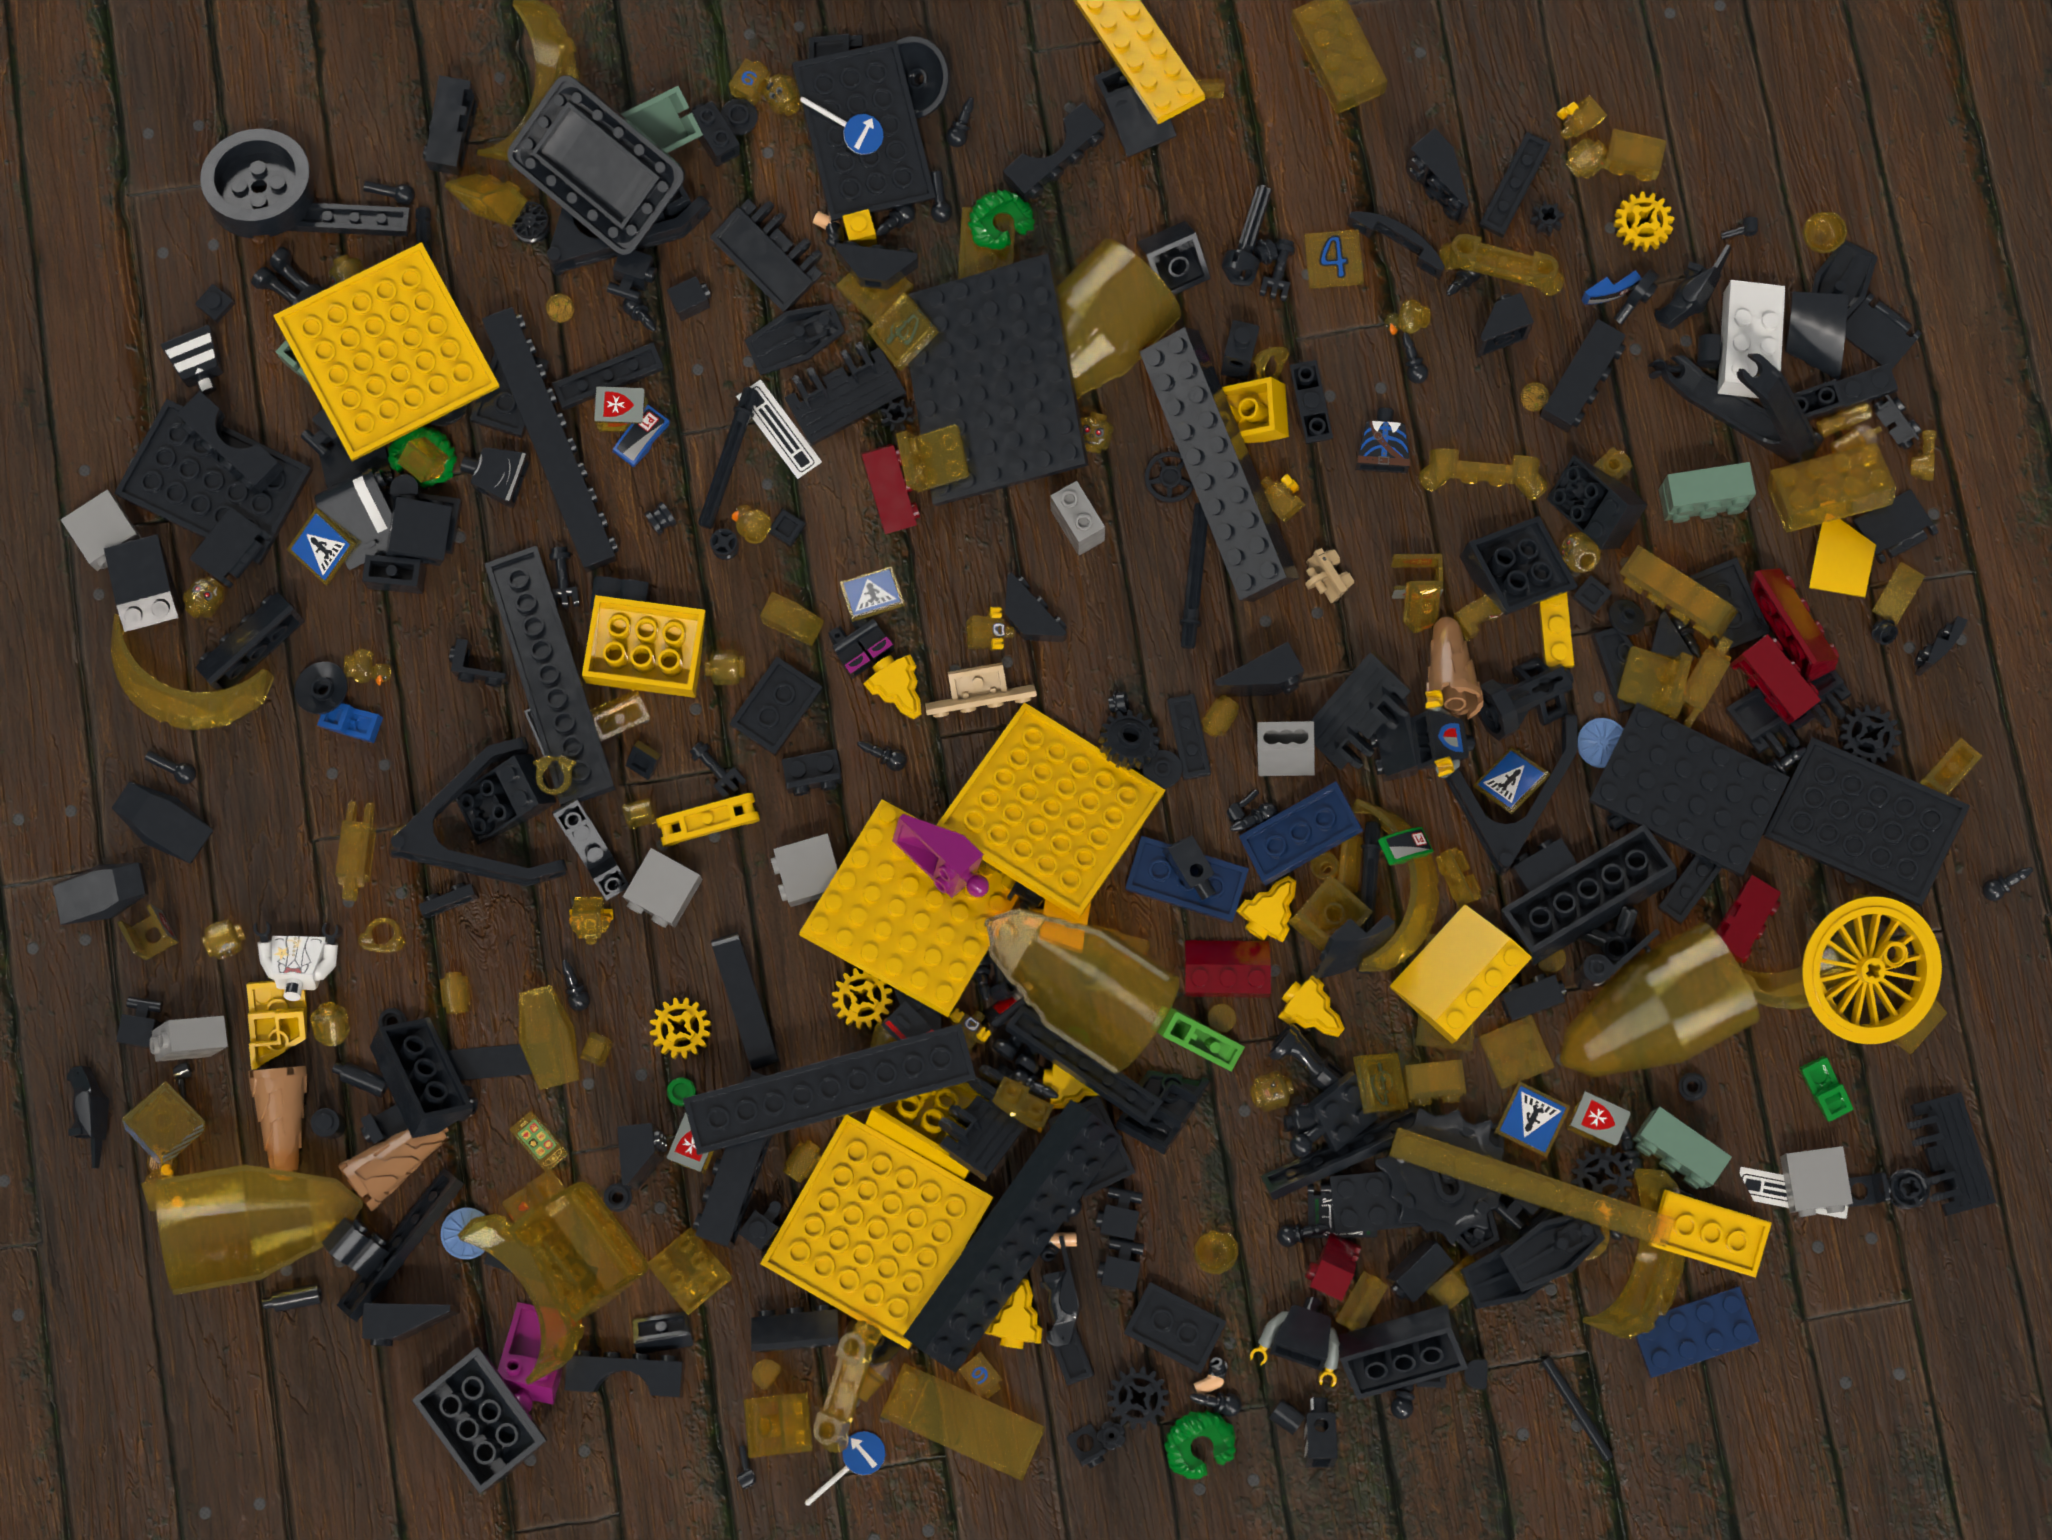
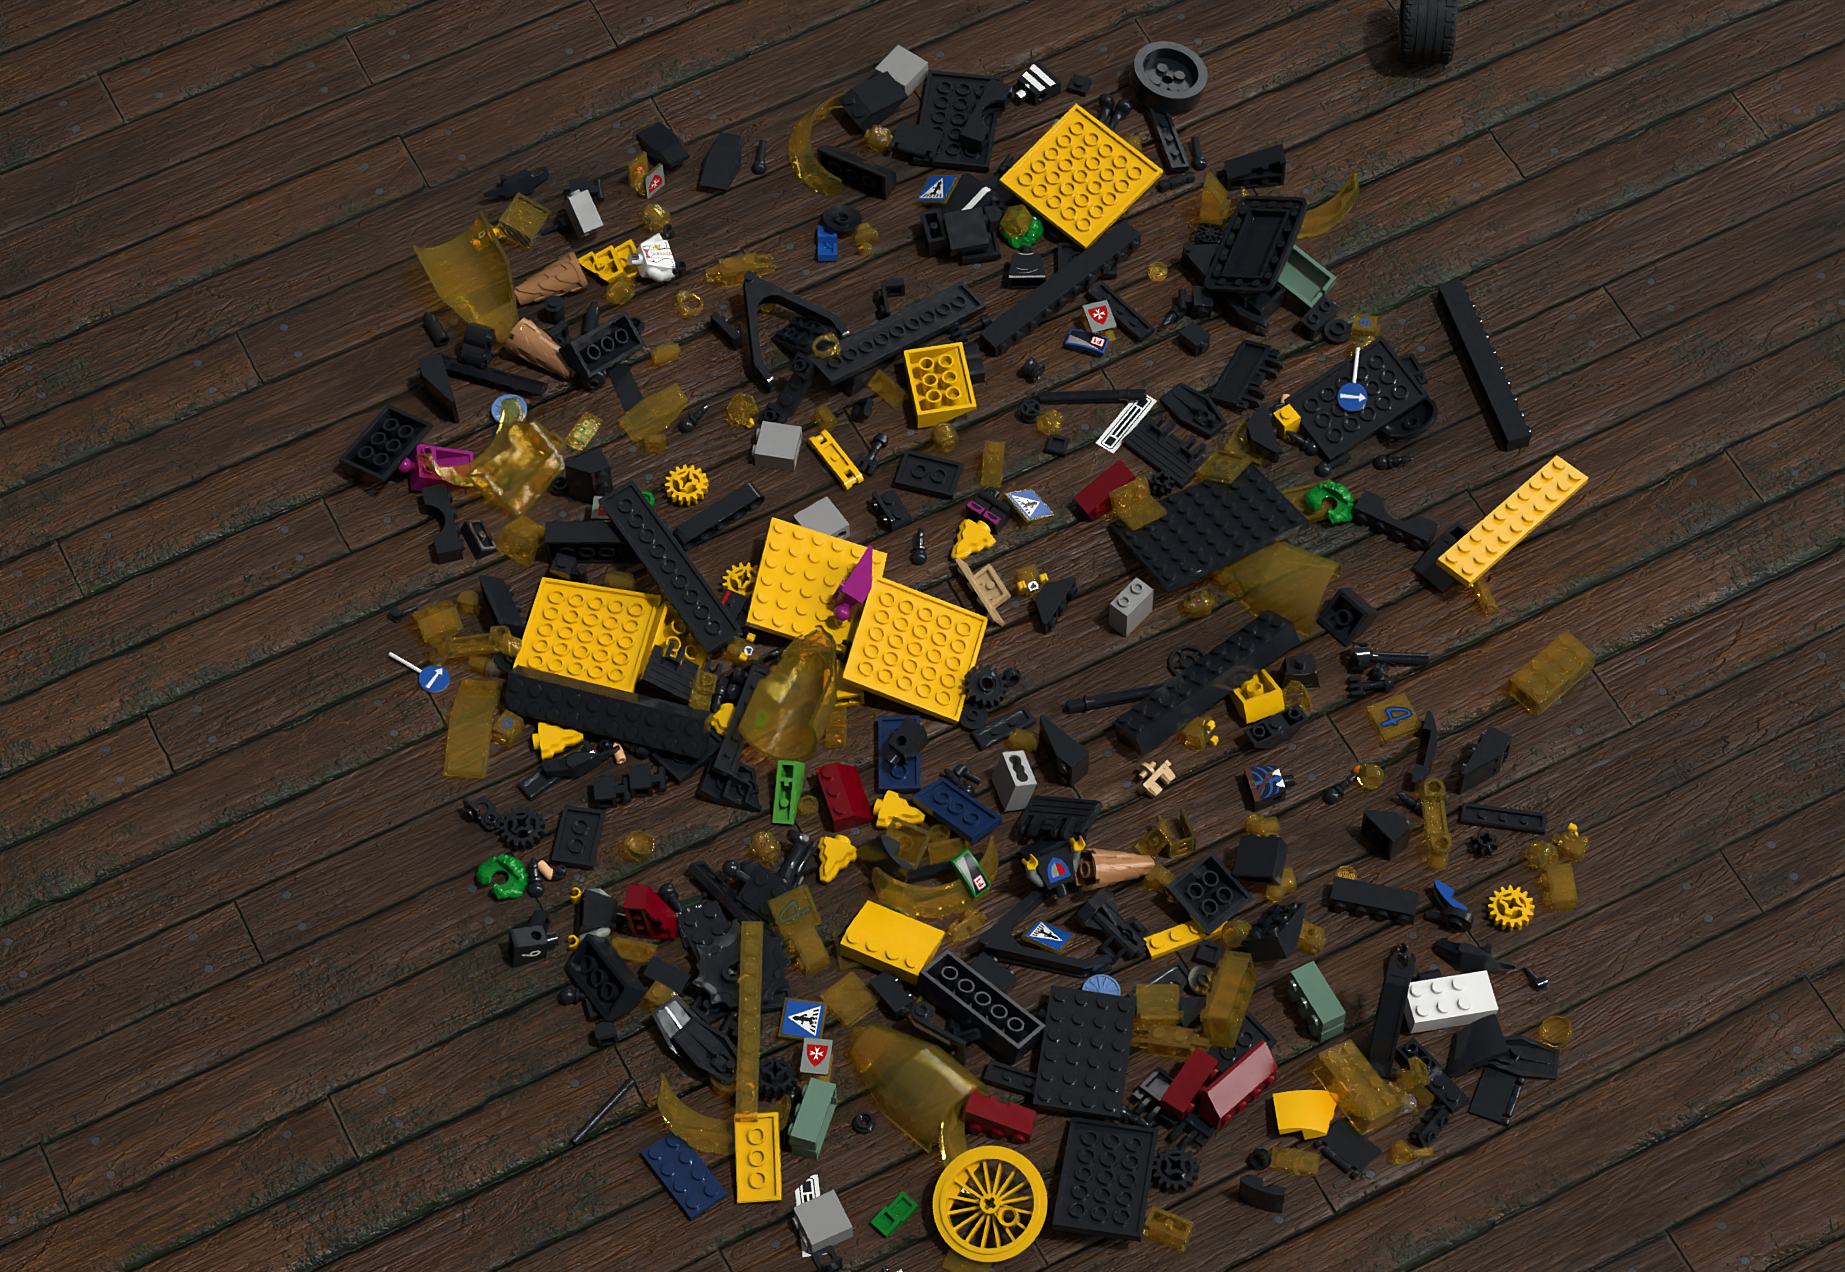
camera: 70 degrees right, 20 degrees down
(1498, 487) = (1260, 859): none -> black piece
(1845, 414) = (1415, 1077): none -> clear yellow panel

